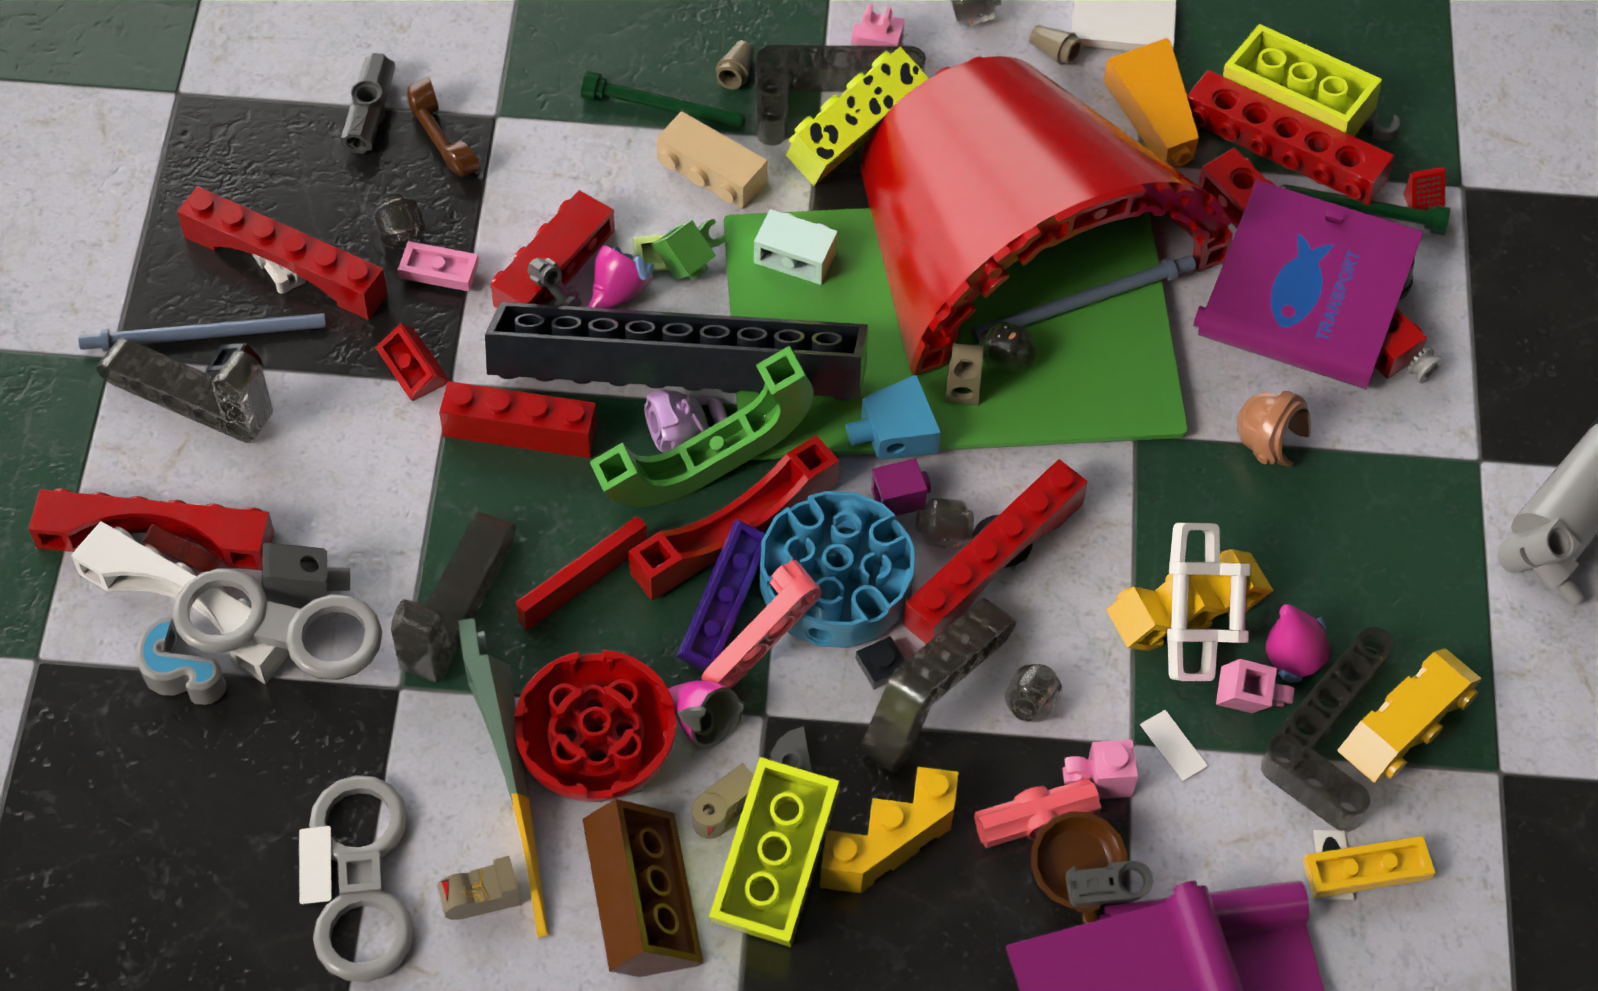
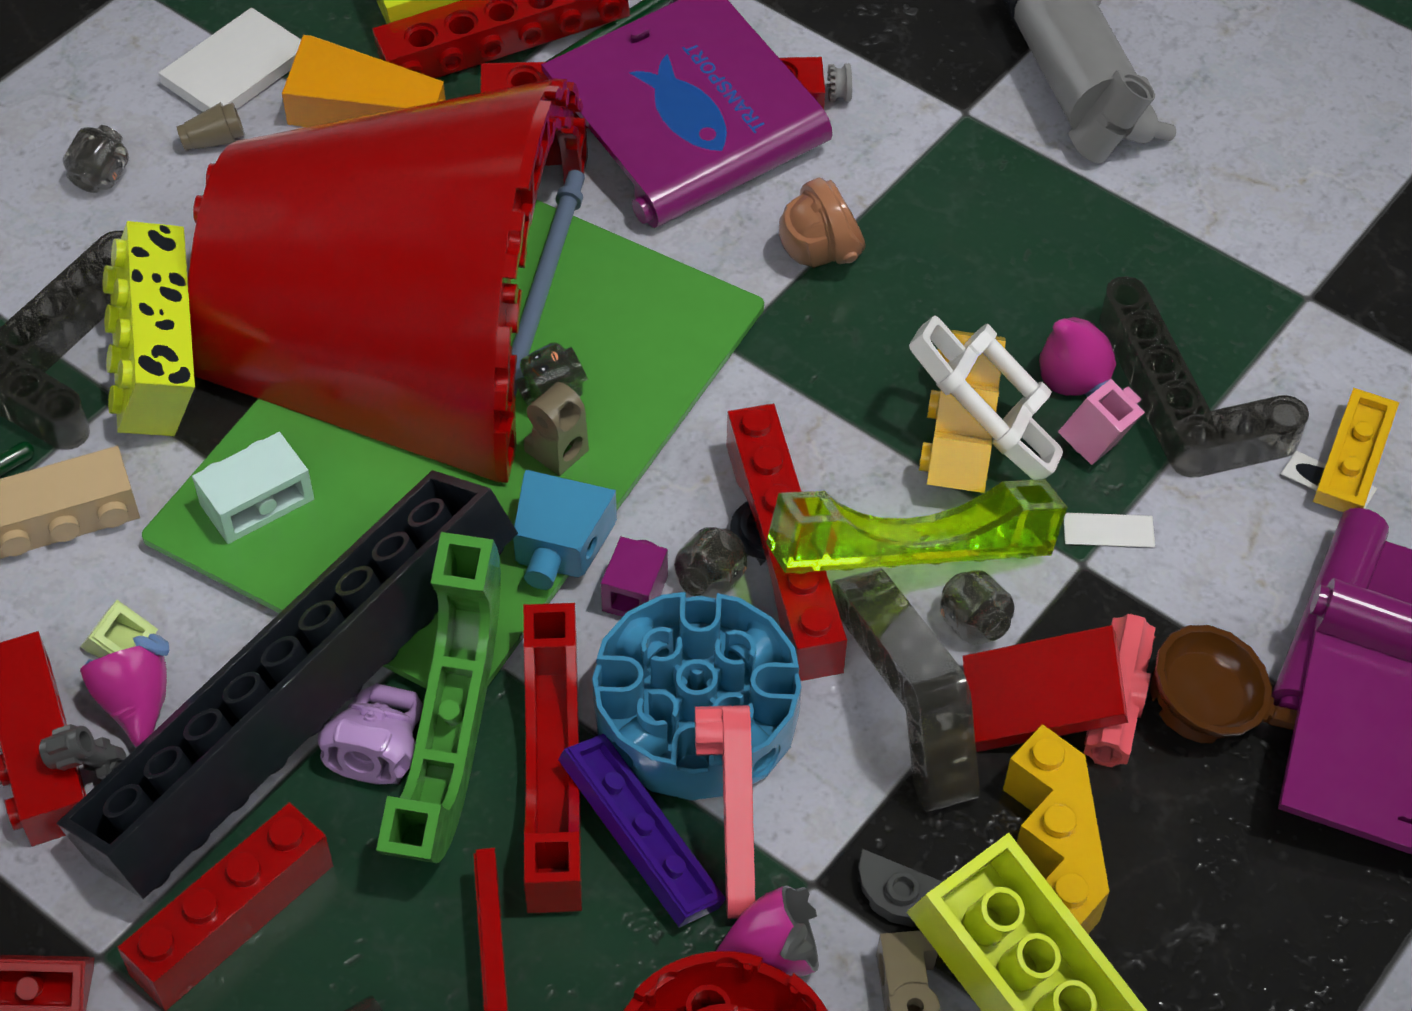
camera: 55 degrees left, 5 degrees down
(688, 249) = (155, 593): bright green brick -> none
(878, 29) = (47, 254): bright pink brick -> none
(879, 661) = (832, 727): black plate -> none
(997, 764) = (1056, 681): none -> red tile
(1105, 668) = (1008, 521): none -> clear neon green arch
(1105, 884) = (1259, 674): dark grey piece -> none
(1109, 767) = (1114, 589): bright pink brick -> none
(1410, 715) = (1221, 318): yellow brick -> none

